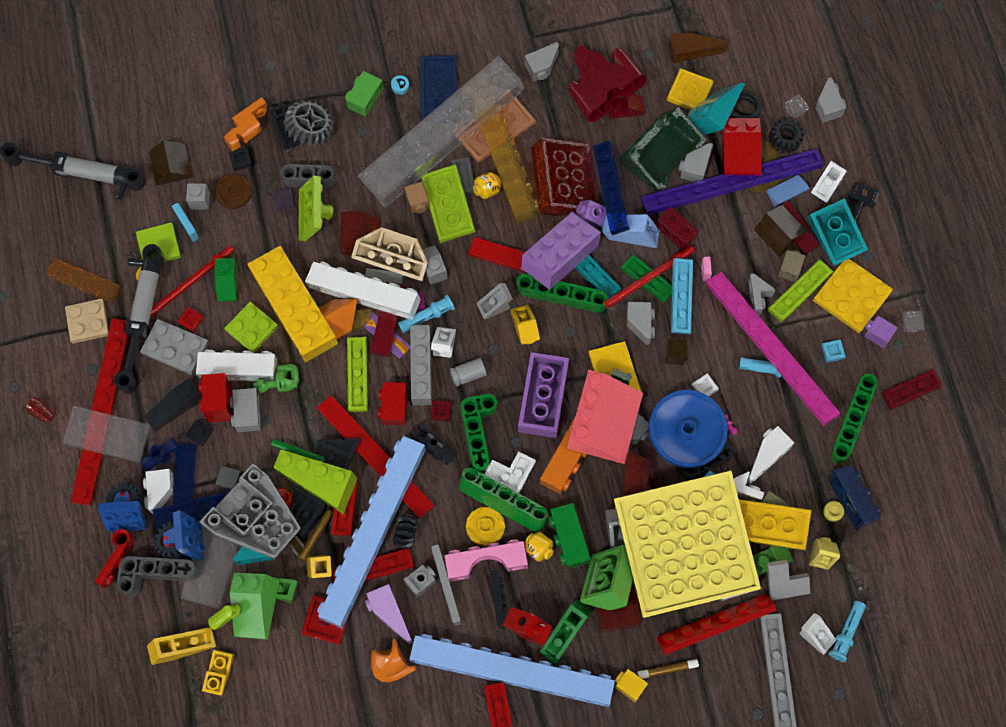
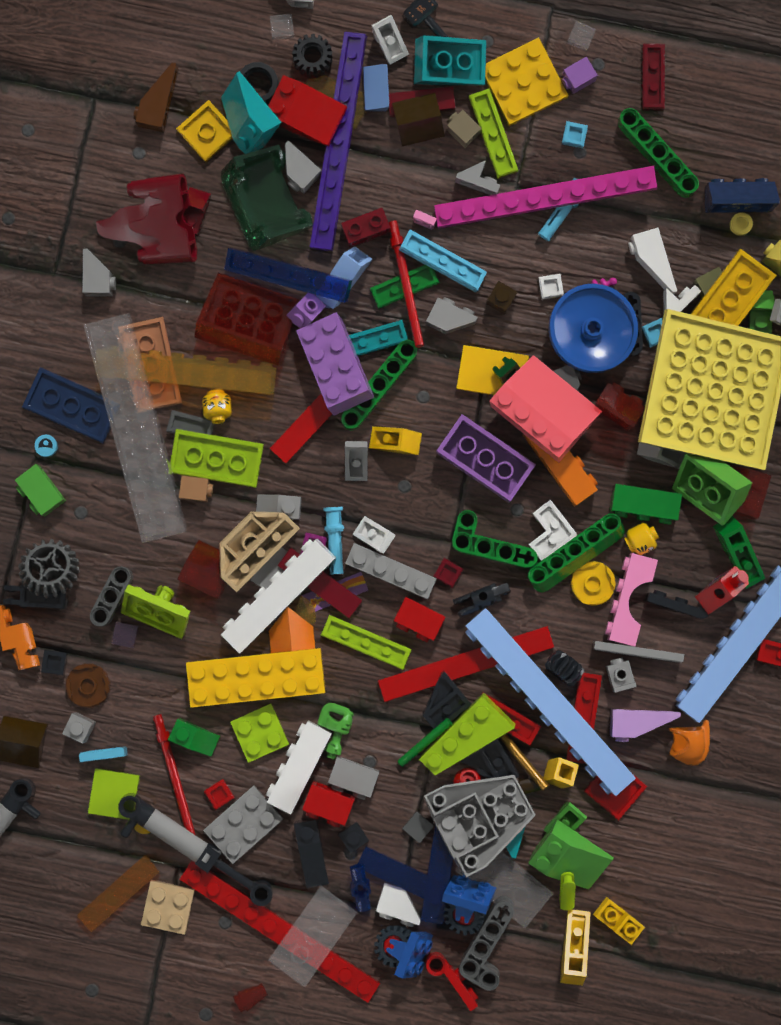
camera: 65 degrees left, 15 degrees up
(468, 372) = (421, 525): light grey piece -> none

